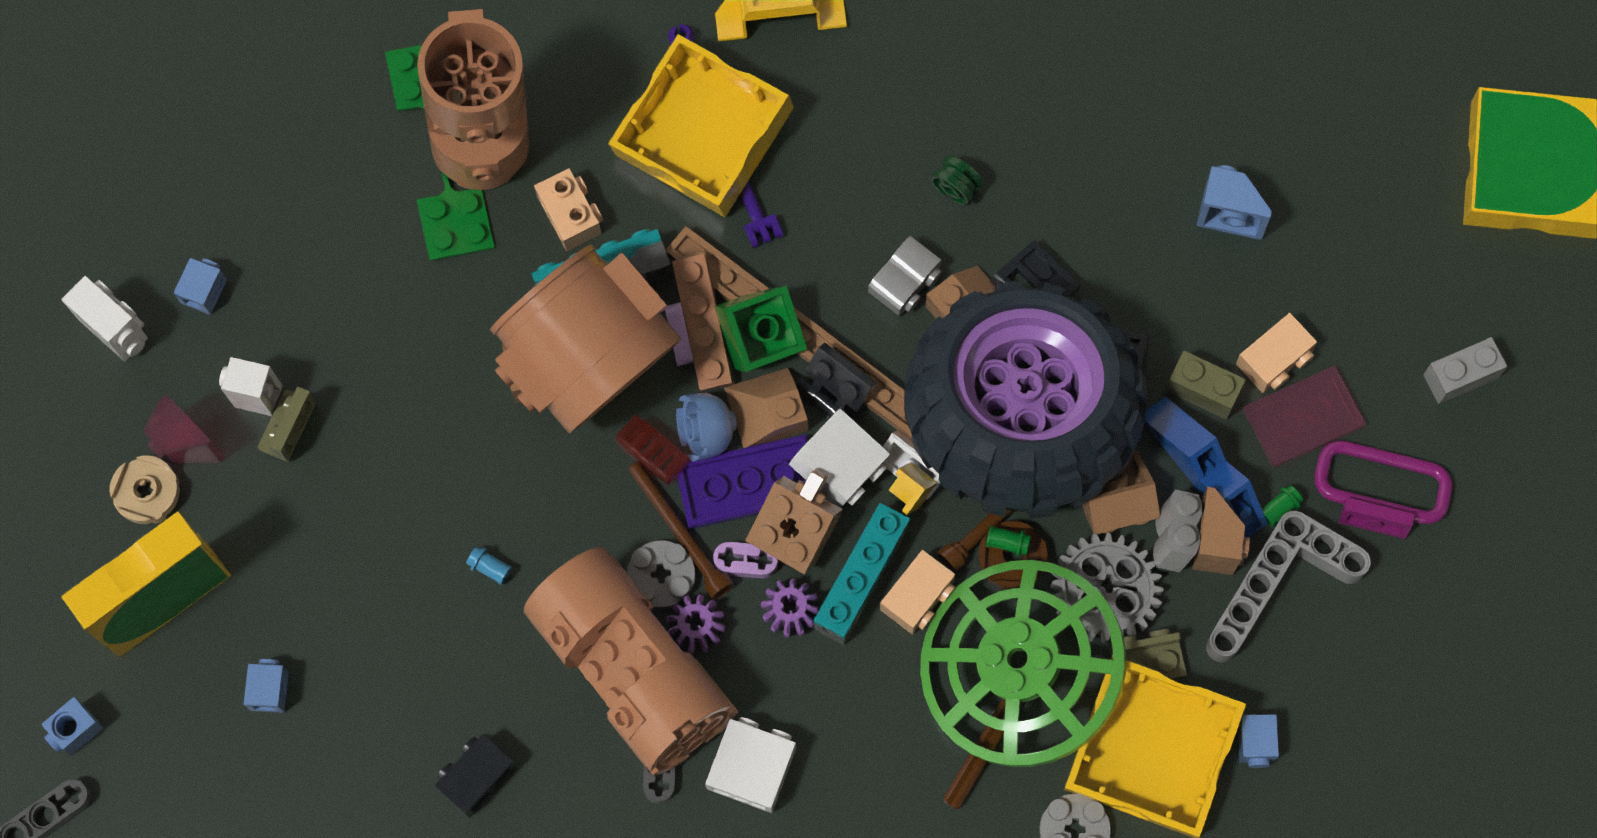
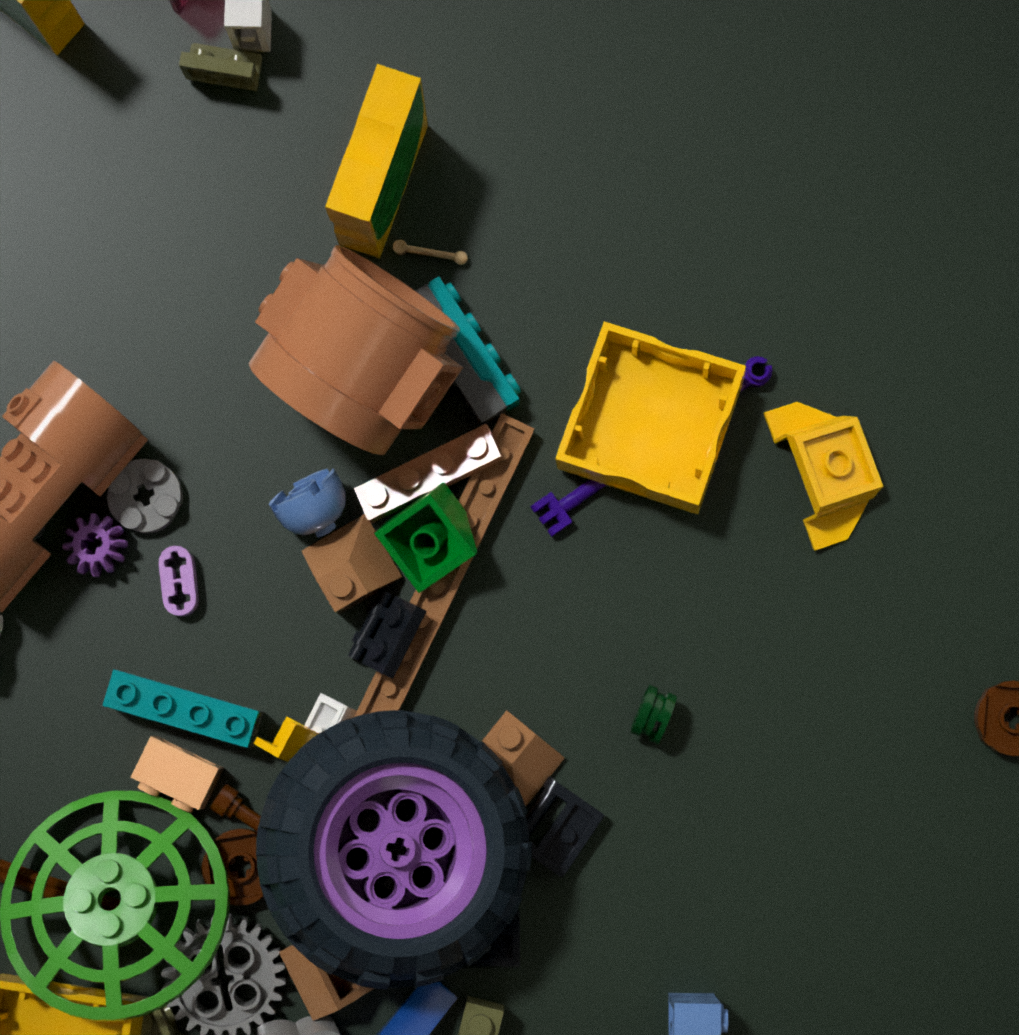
camera: 75 degrees right, 10 degrees up
(421, 290) = (378, 161): none -> yellow tile
(454, 220) = (492, 181): green hinge -> none
(474, 100) = (595, 156): nougat cylinder -> none
(488, 565) = (116, 313): dark azure pin -> none
(493, 308) = (400, 248): none -> tan hinge
(568, 209) = (526, 298): light nougat brick -> none
(636, 435) = (288, 426): clear red slope -> none
(676, 321) = (410, 449): lavender beam -> none
(716, 582) = (148, 554): reddish brown piece -> none
(736, 481) = (265, 564): dark purple tile -> none
(803, 606) = (132, 625): medium lavender gear -> none
(814, 520) = (217, 624): medium nougat hinge -> none
(845, 455) = (300, 658): white brick -> none
(905, 276) = (530, 681): light grey brick -> none
(1008, 540) = (246, 861): green pin -> none

